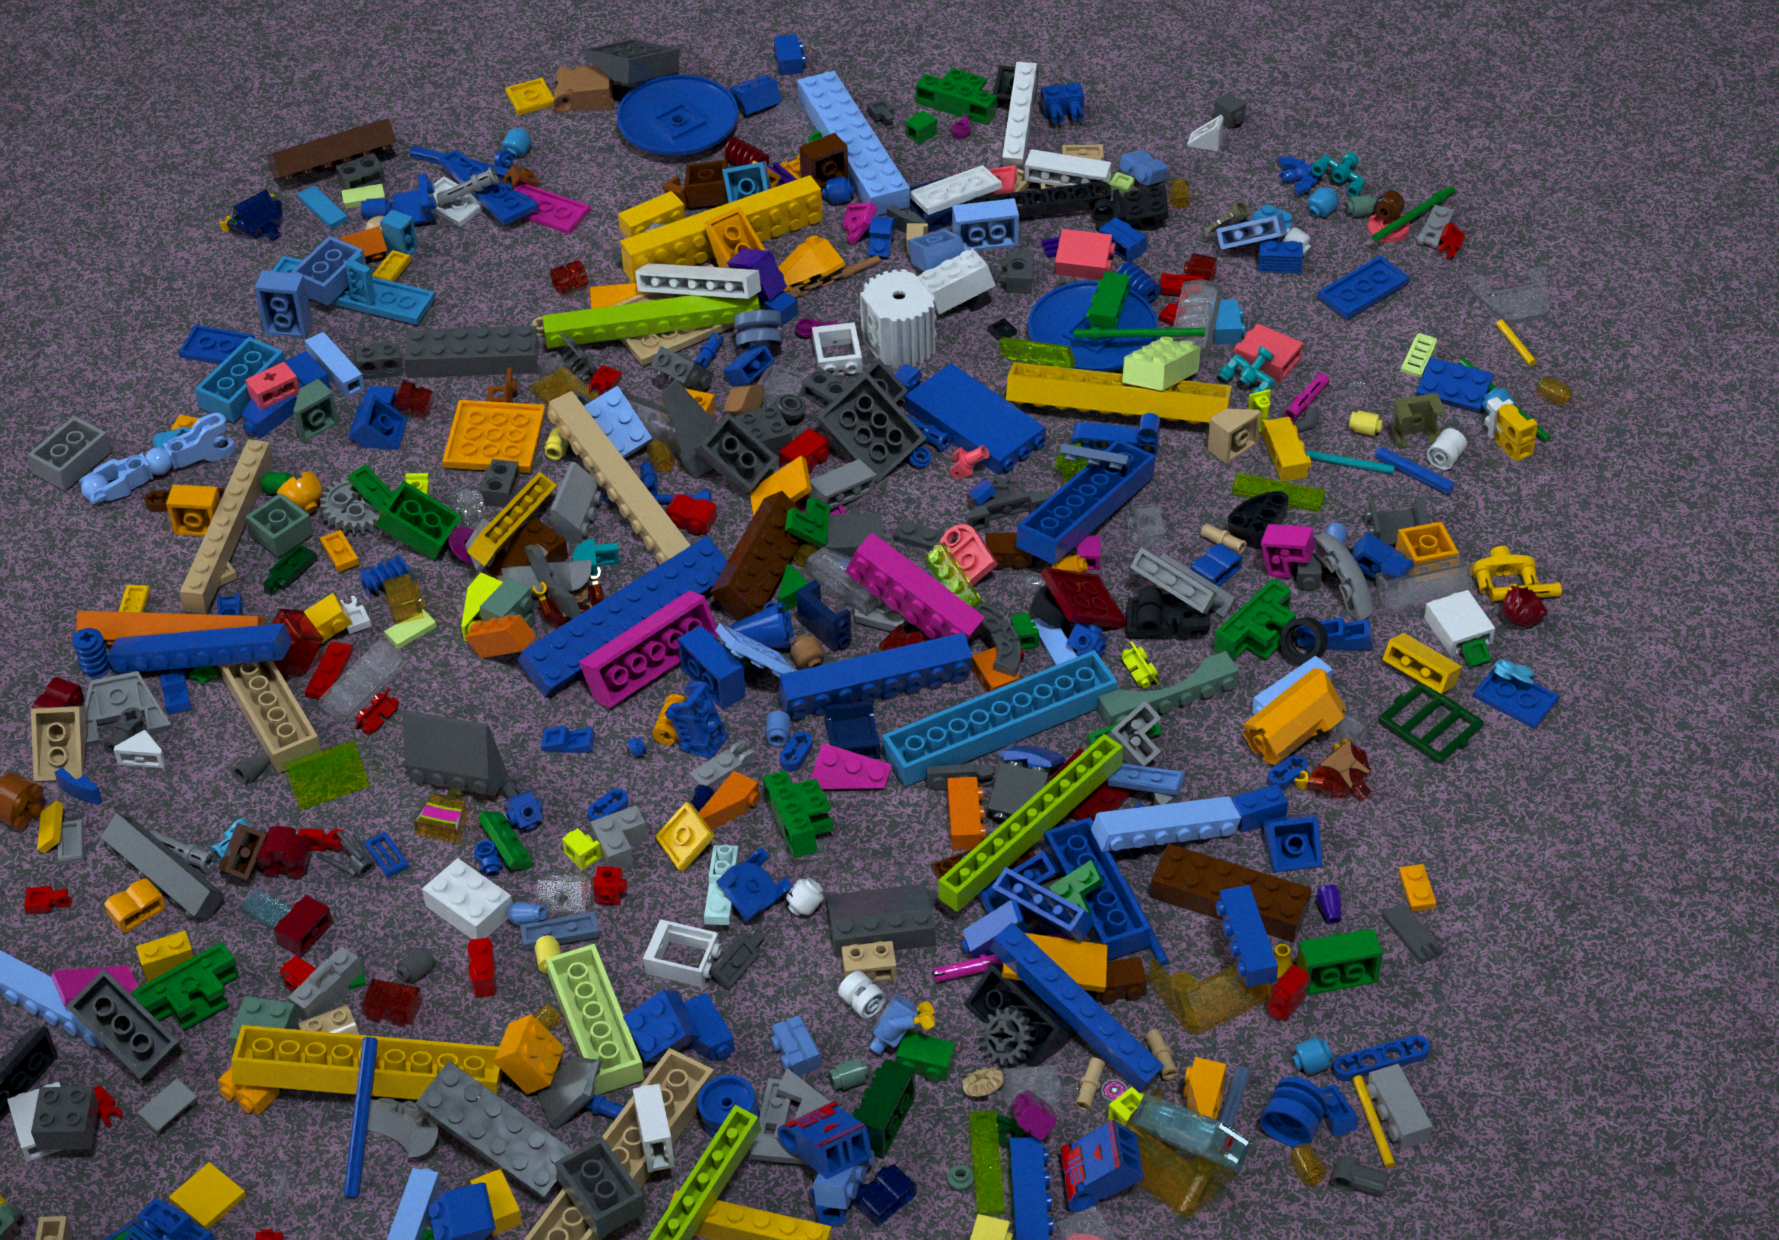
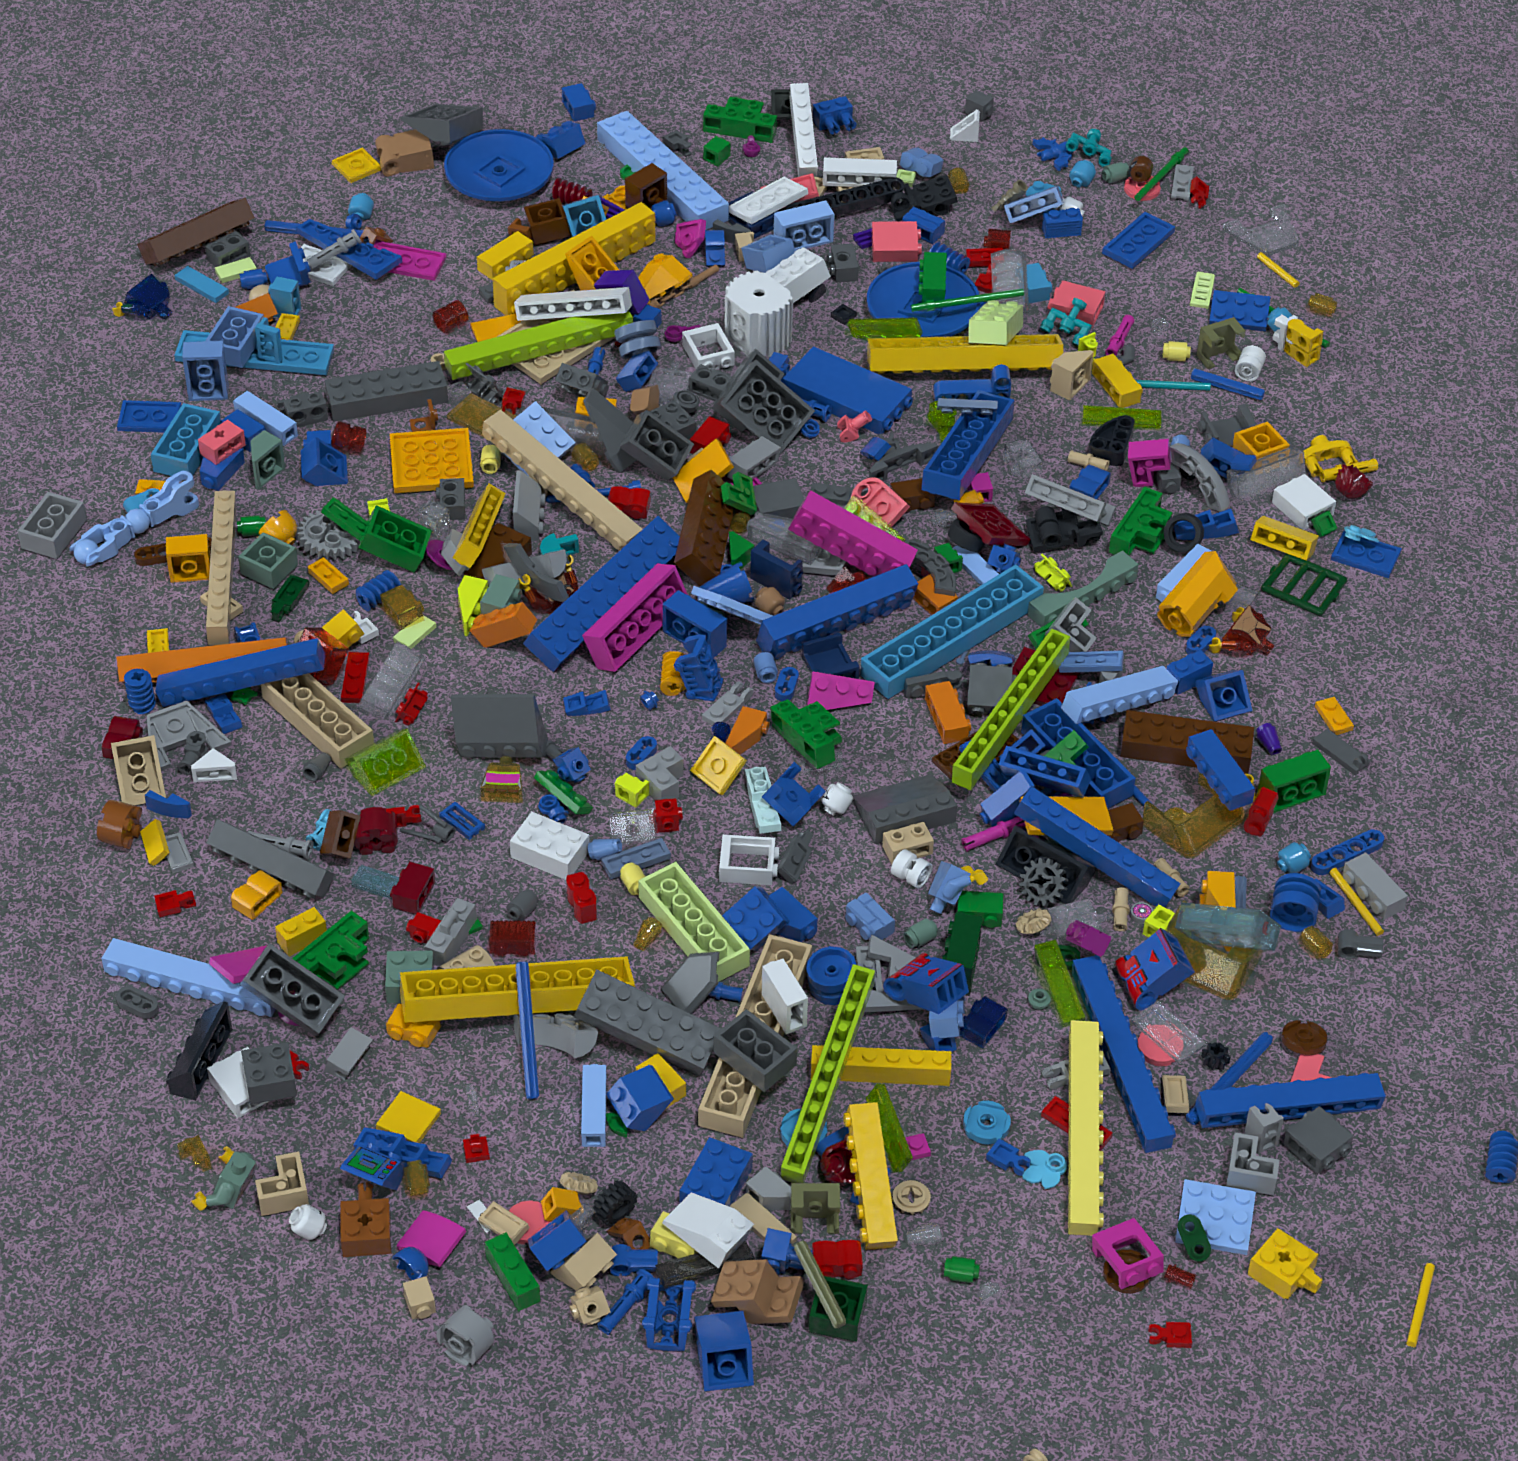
camera: 15 degrees left, 0 degrees up
(529, 1054) = (651, 958): light orange brick -> none

